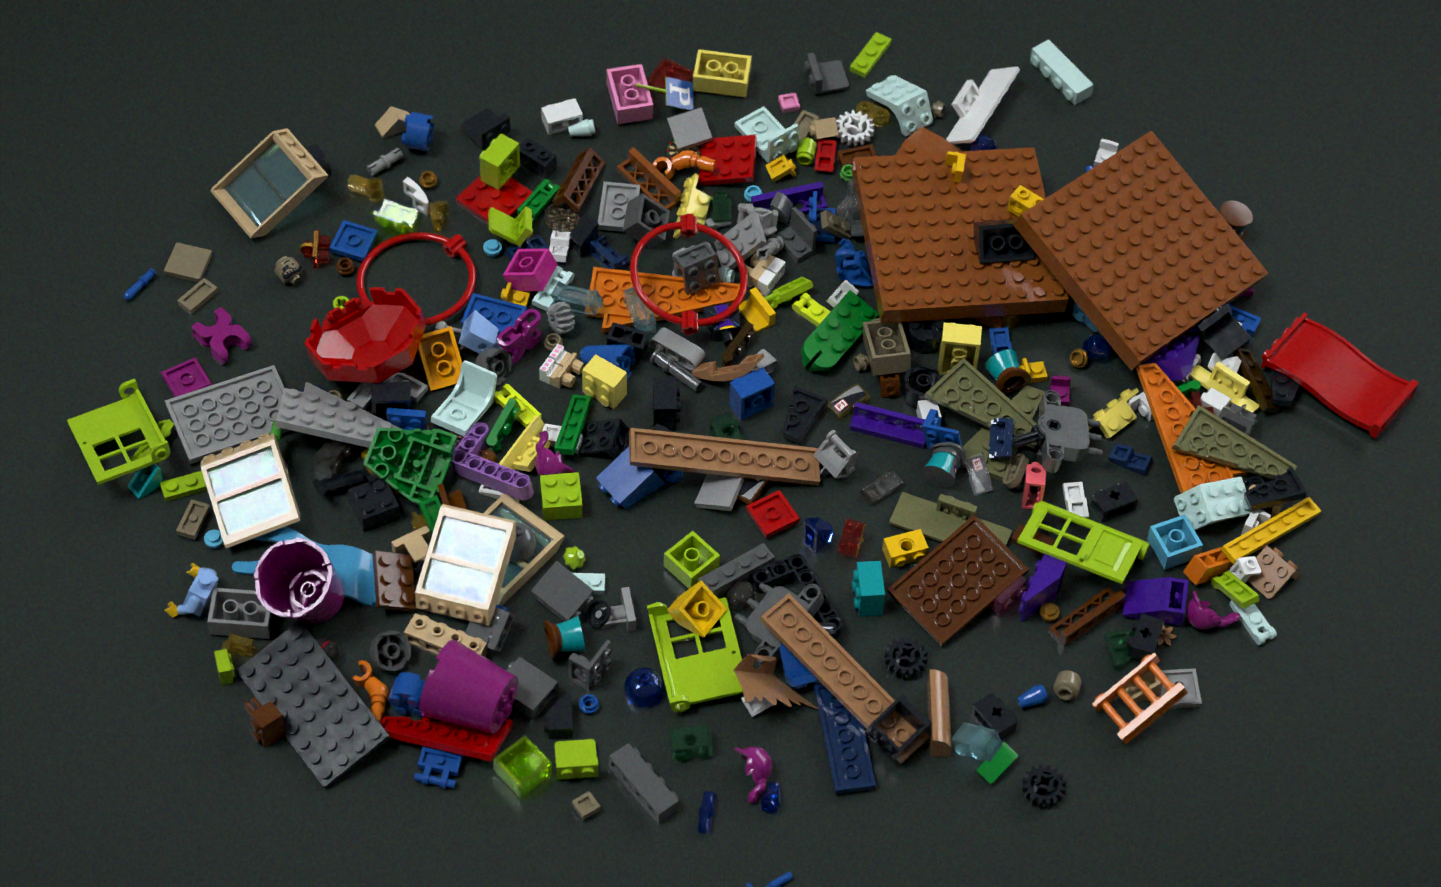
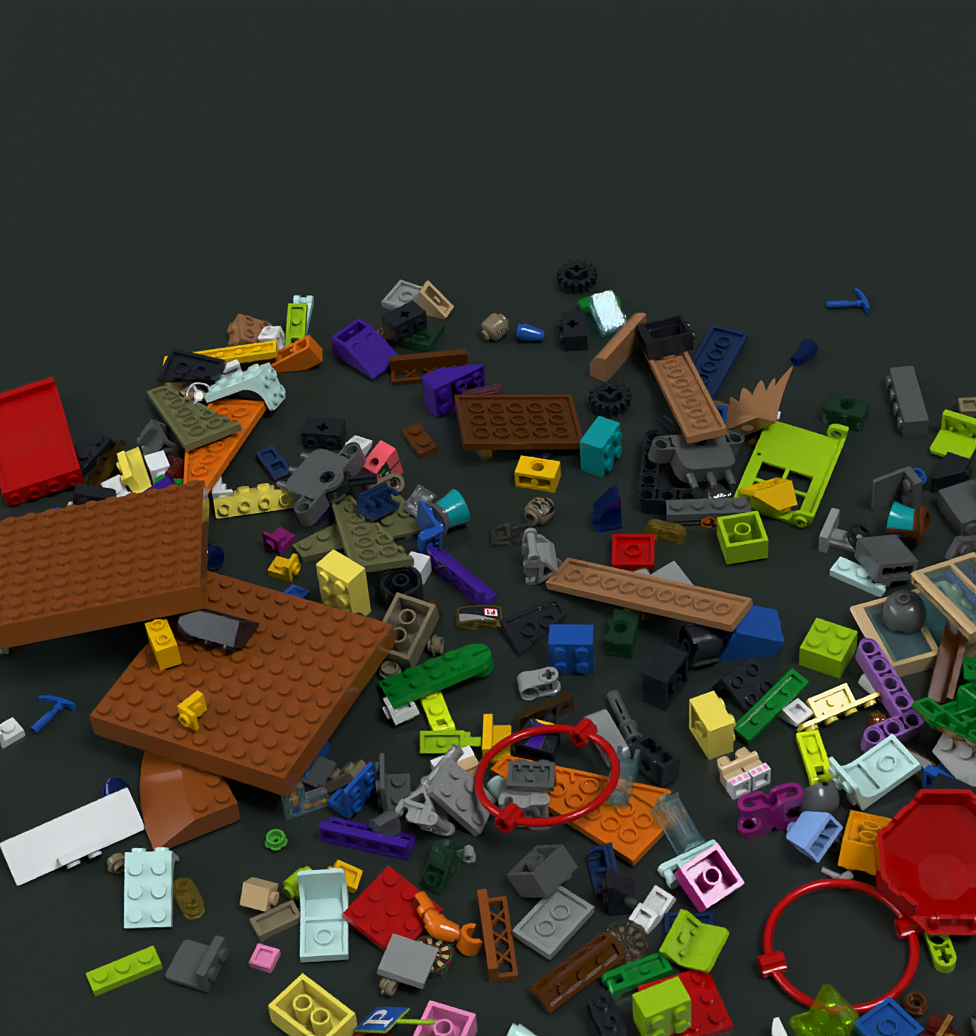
camera: 140 degrees left, 10 degrees down
(437, 211) = (771, 1009): clear yellow bracket -> none
(492, 247) = (731, 946): medium azure plate -> none
(494, 310) = (778, 861): blue plate -> none
(503, 425) = (843, 734): green plate -> none
(515, 296) = (748, 873): yellow bracket -> none
(546, 461) = (820, 672): magenta piece -> none
(552, 338) = (728, 803): dark tan plate -> none
(560, 318) = (709, 815): light grey gear -> none
(574, 557) = (850, 592): lime piece -> none
(618, 355) = (688, 744): blue cone -> none
(643, 688) = (857, 469): clear blue cylinder -> none
(693, 202) = (476, 875): light yellow bracket -> none
(706, 812) = (866, 365): clear blue pin -> none
(711, 372) = (575, 676): medium nougat slope -> none
(751, 191) = (397, 863): medium azure plate -> none
(759, 764) = (803, 370): magenta piece -> none
(770, 540) = (666, 531): none -> clear yellow plate
(825, 156) = (283, 868): red slope -> none
(847, 156) = (251, 852): reddish brown plate -> none
(851, 537) = (580, 495): clear red hips -> none
(853, 265) = (361, 733): blue helmet -> none
(854, 128) = (225, 881): white gear -> none
(876, 514) = (539, 510): none -> dark tan head
(940, 518) = (482, 479): olive bracket -> none
(1007, 371) = (305, 569): hat -> none
(1079, 358) = (233, 557): pearl gold plate -> none
(1103, 551) = (376, 381): lime door -> none
(1158, 706) = (453, 272): orange fence -> none
(1174, 541) = (308, 379): medium azure brick -> none
(1204, 618) = (336, 322): magenta piece -> none

